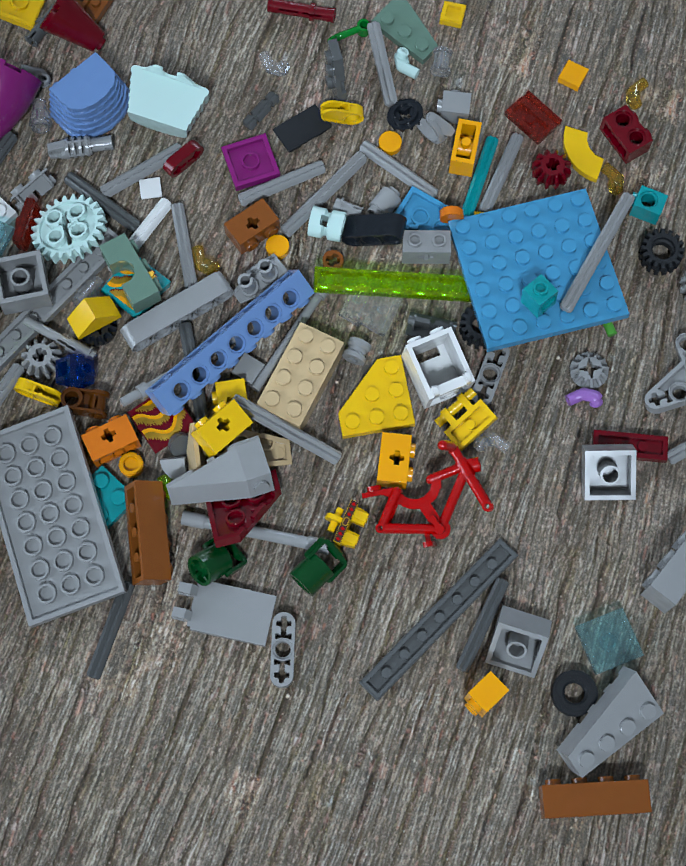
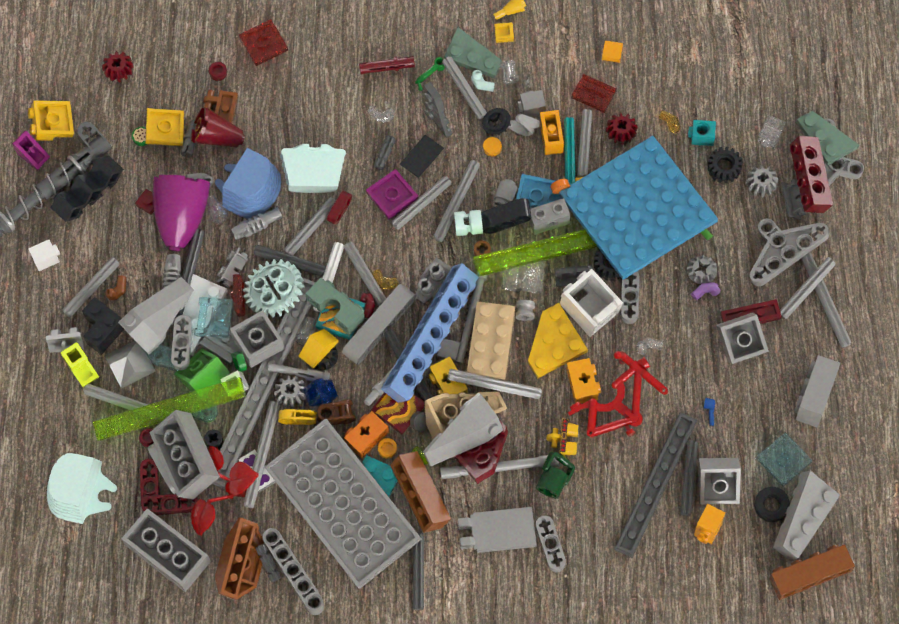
camera: 15 degrees left, 5 degrees down
(150, 188) = (322, 238): white piece -> none
(174, 466) = (421, 438): light grey tile -> none
(175, 284) = (370, 304): none -> dark red arm
(215, 562) = (478, 496): dark green piece -> none
(233, 421) = (446, 405): yellow brick -> none
(252, 226) = (413, 233): dark orange brick -> none
(278, 245) = (436, 250): light orange tile -> none
(342, 112) = (448, 134): yellow piece -> none
(349, 208) = (478, 205): light grey pin -> none
(397, 169) = (505, 164): light grey axle -> none
(470, 424) = (629, 336): yellow plate -> none
(539, 296) = (648, 226): teal brick -> none
(539, 540) = (710, 404): none -> blue hand
(580, 154) = (639, 110): yellow tile -> none
(597, 252) = (678, 182): light grey axle -> none
(621, 136) = (665, 87): dark red brick -> none
(633, 93) = (662, 50): clear yellow arm -> none

